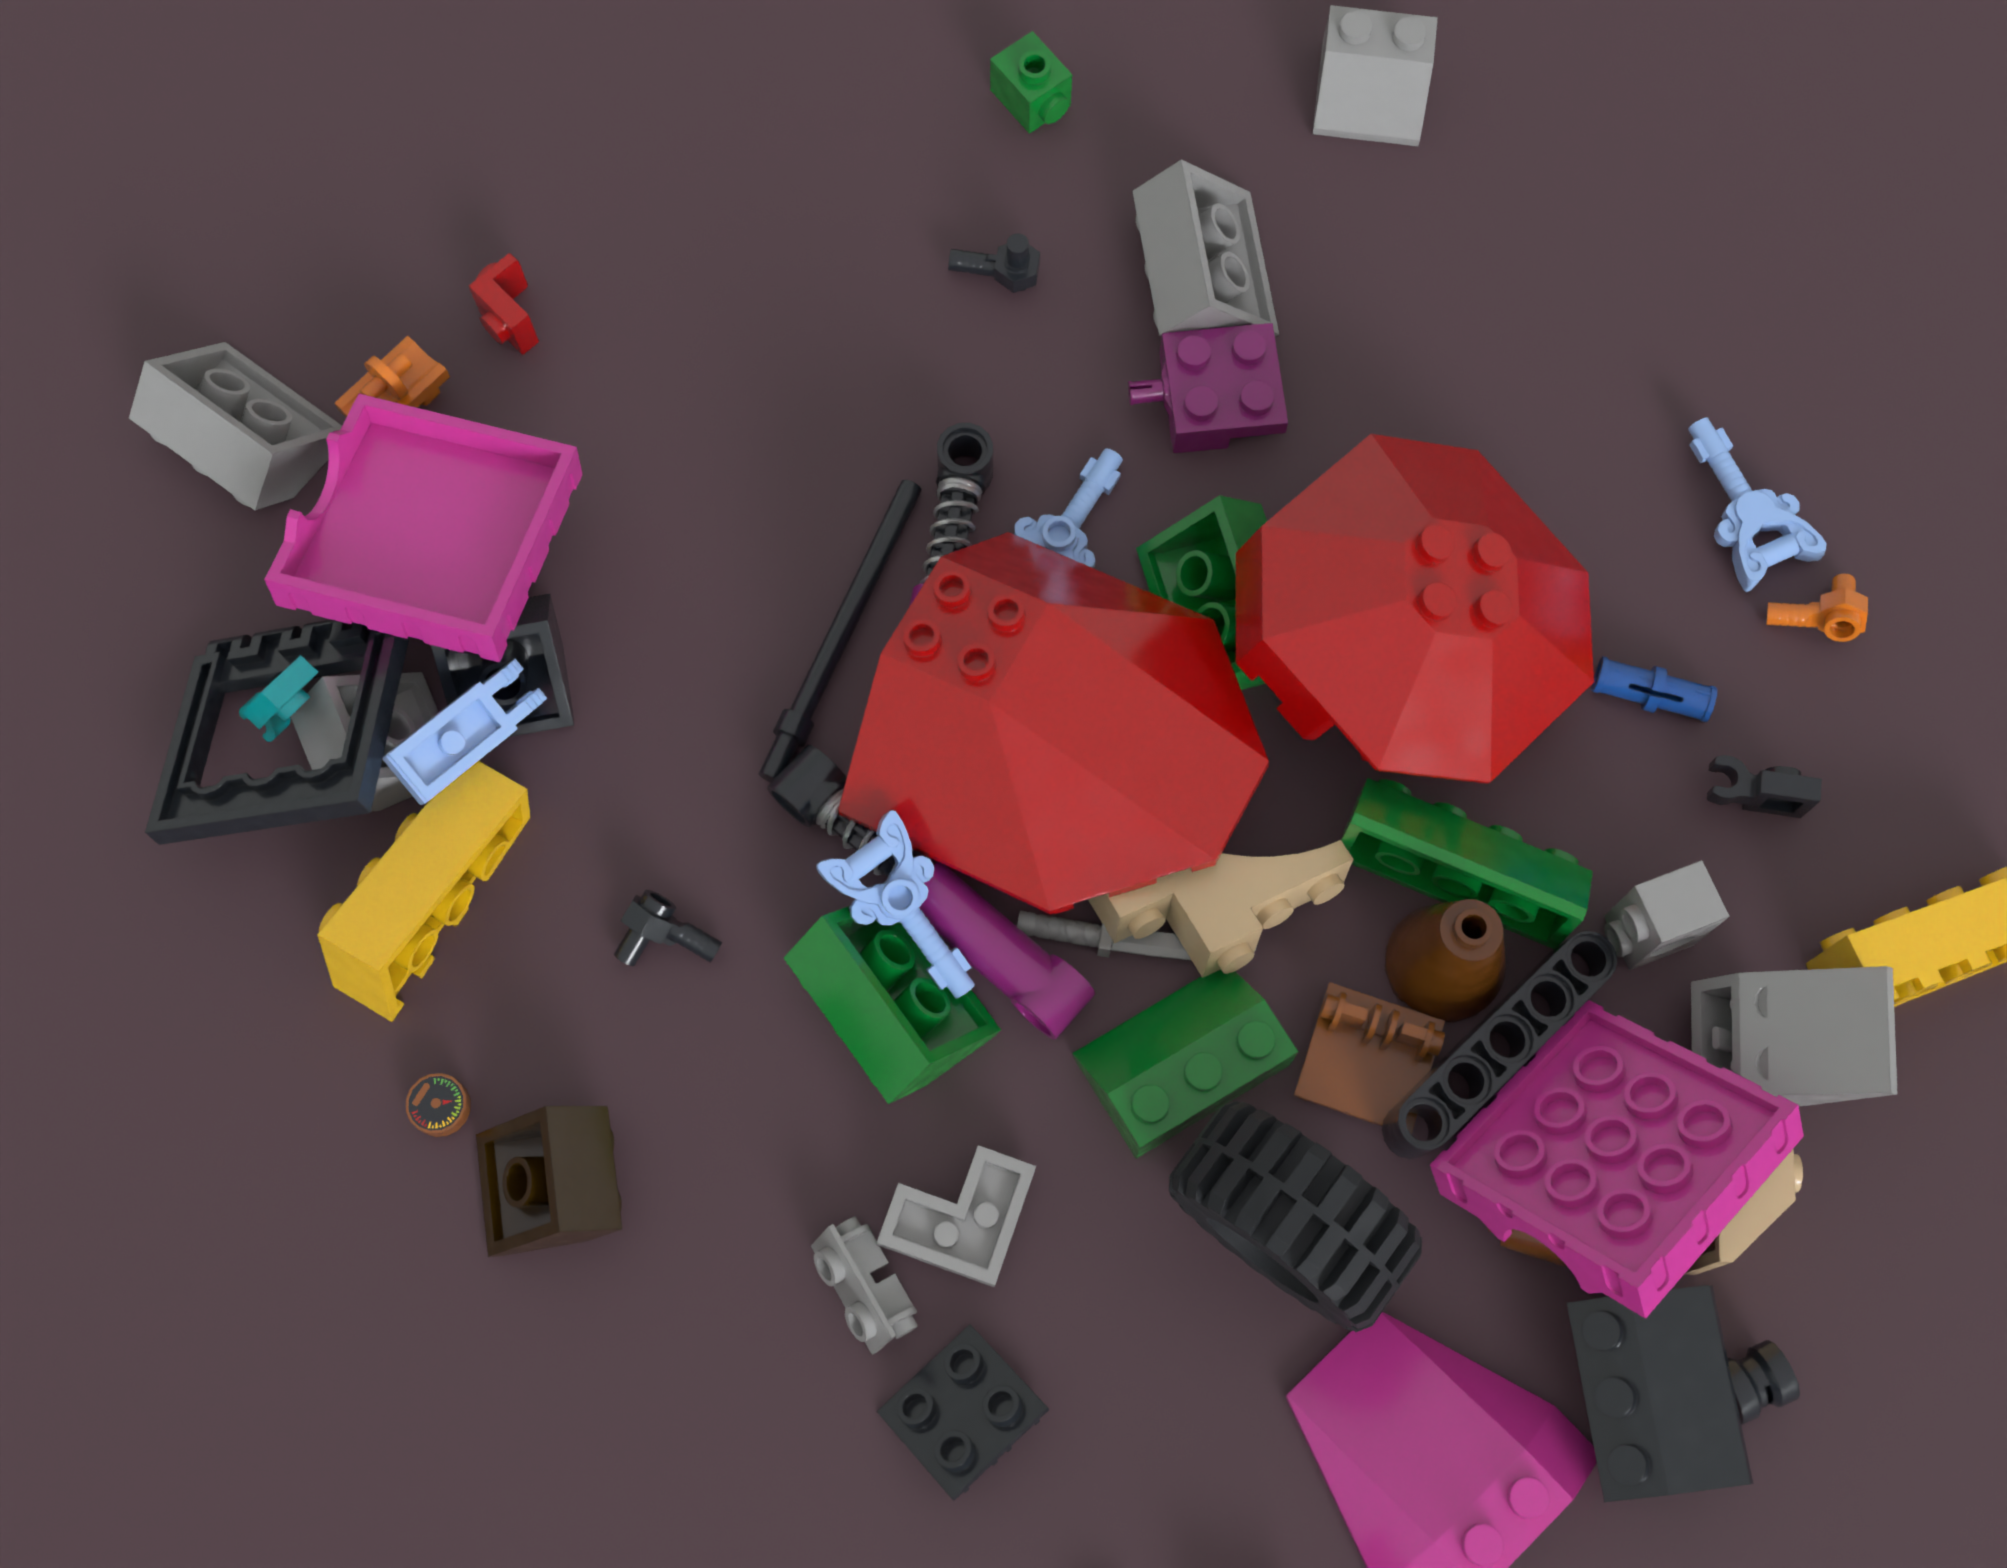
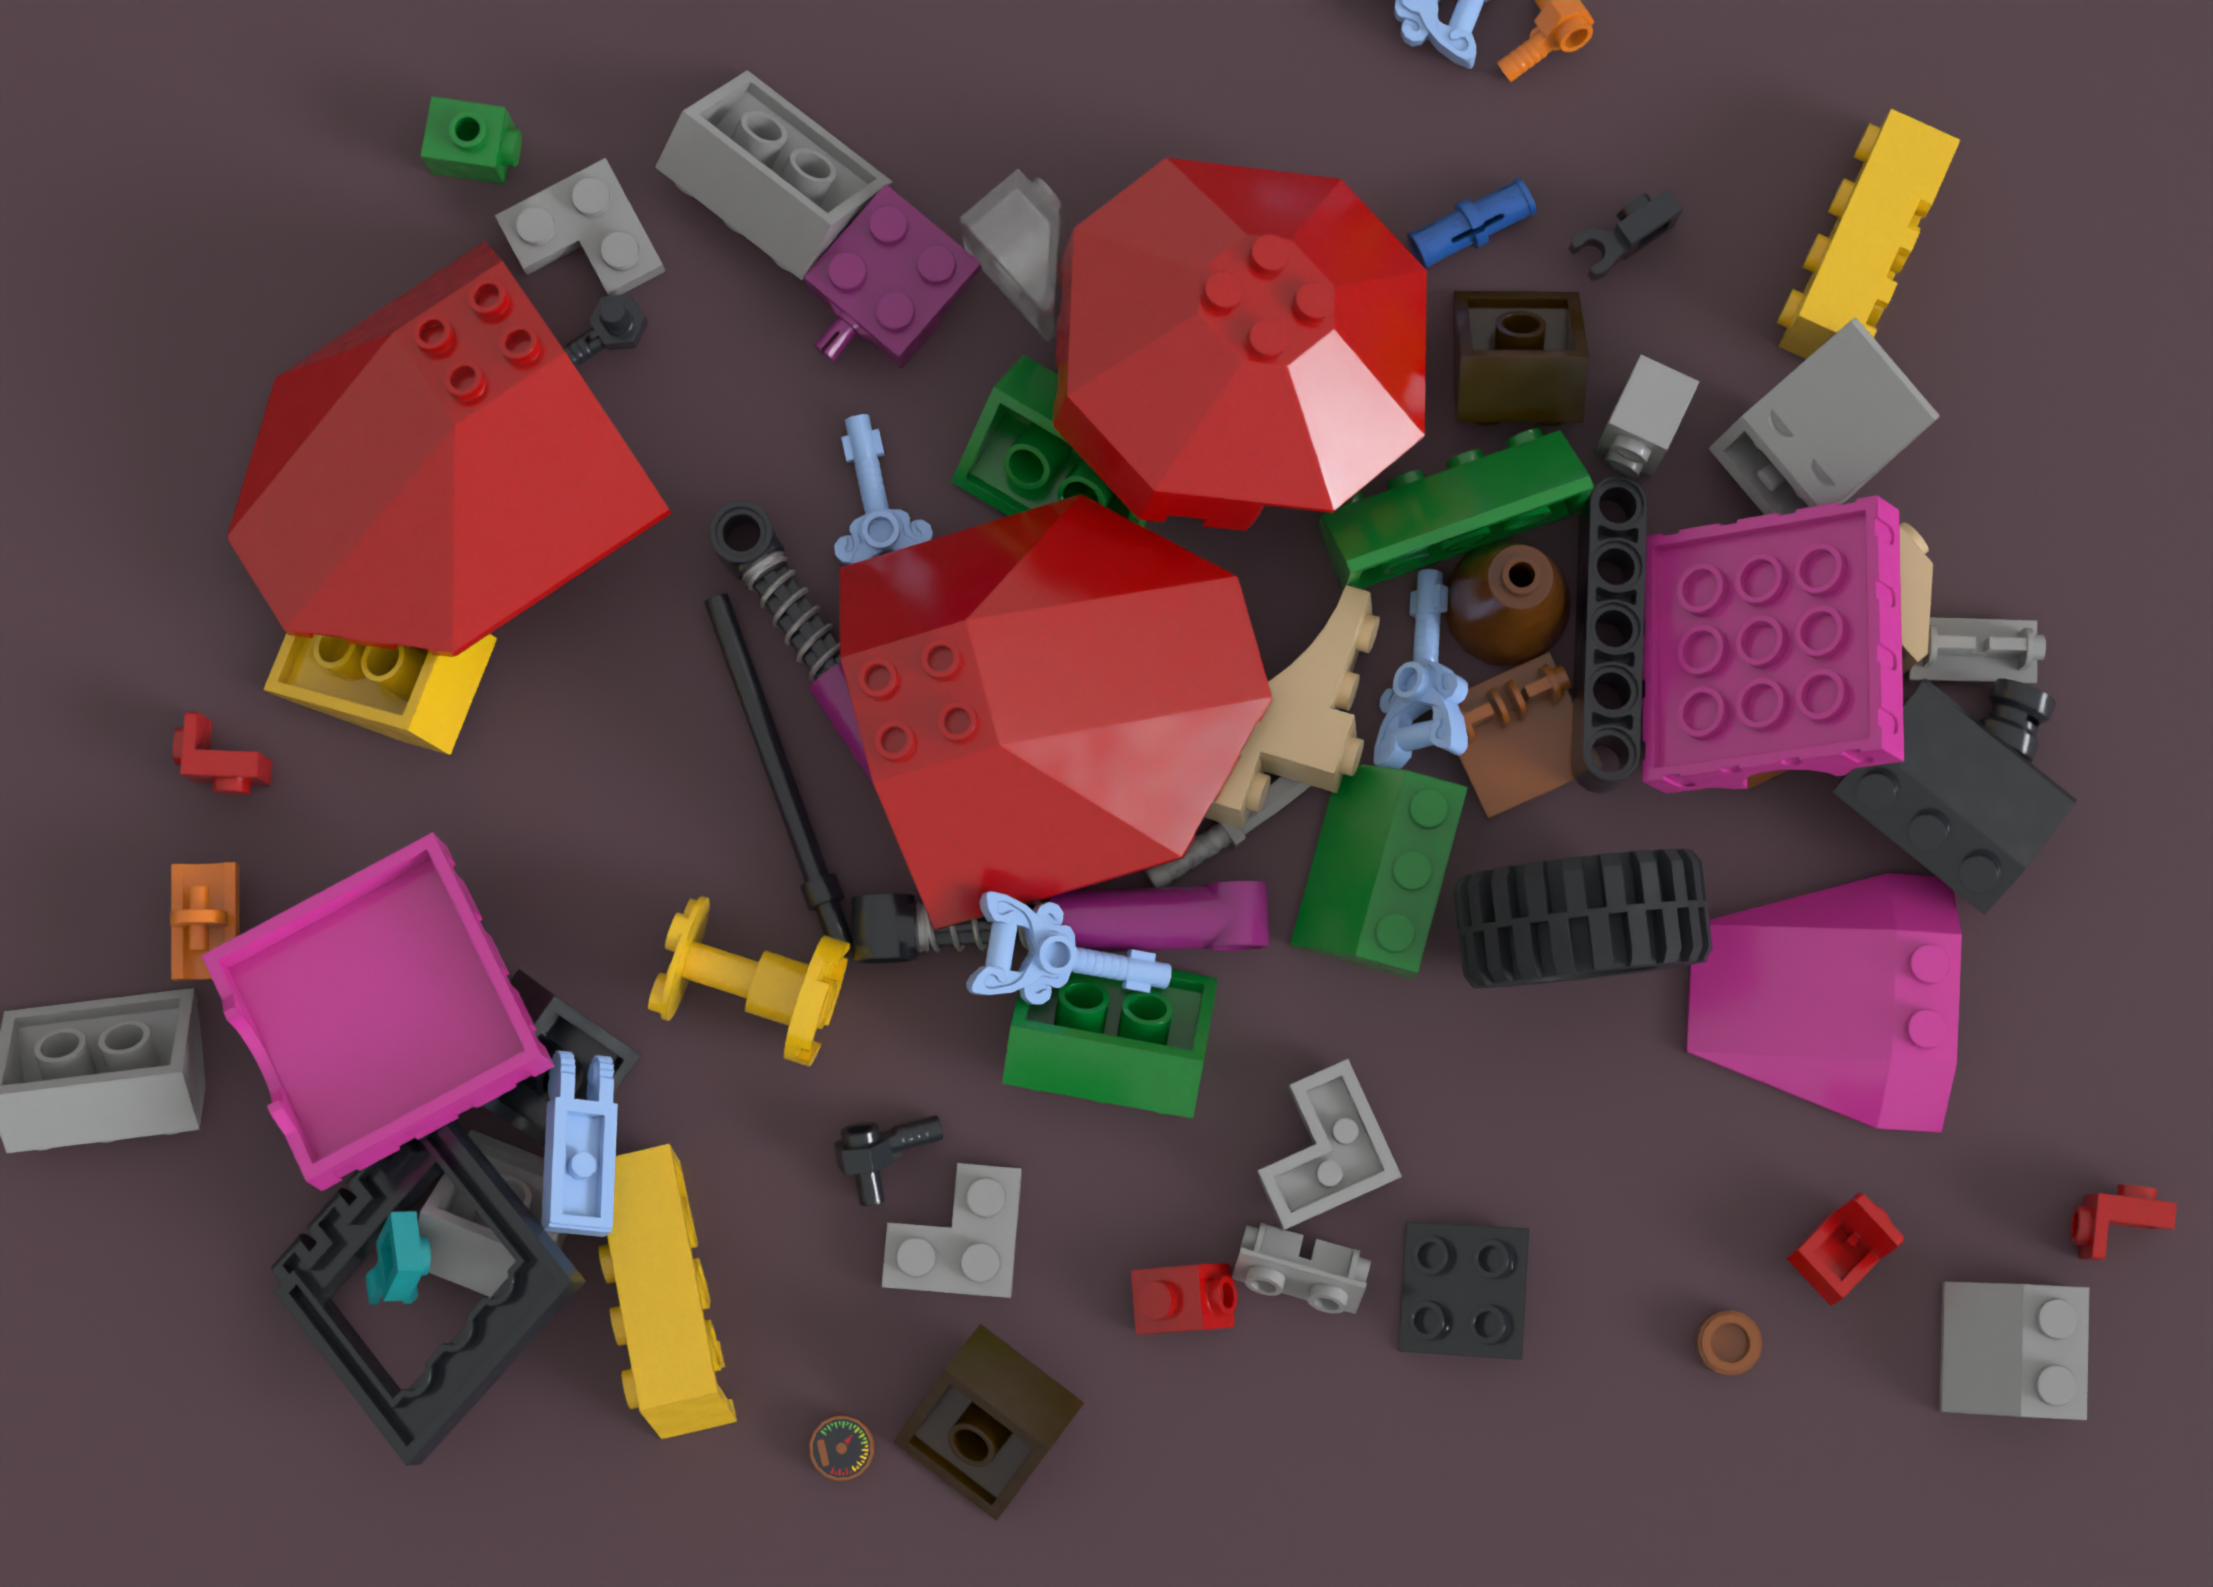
camera: 40 degrees left, 10 degrees up
(659, 1057) = (971, 1255): none -> light grey plate
(663, 339) = (382, 689): none -> yellow slope
(704, 767) = (774, 987): none -> yellow piece
(763, 1226) = (1183, 1298): none -> red bracket
(809, 243) = (434, 471): none -> red windscreen
(1061, 188) = (585, 213): none -> light grey plate
(1325, 421) = (1020, 246): none -> clear slope
(1331, 960) = (1423, 687): none -> light blue piece
(1605, 803) = (1519, 357): none -> dark brown slope
(1770, 1307) = (1981, 651): none -> light grey hinge

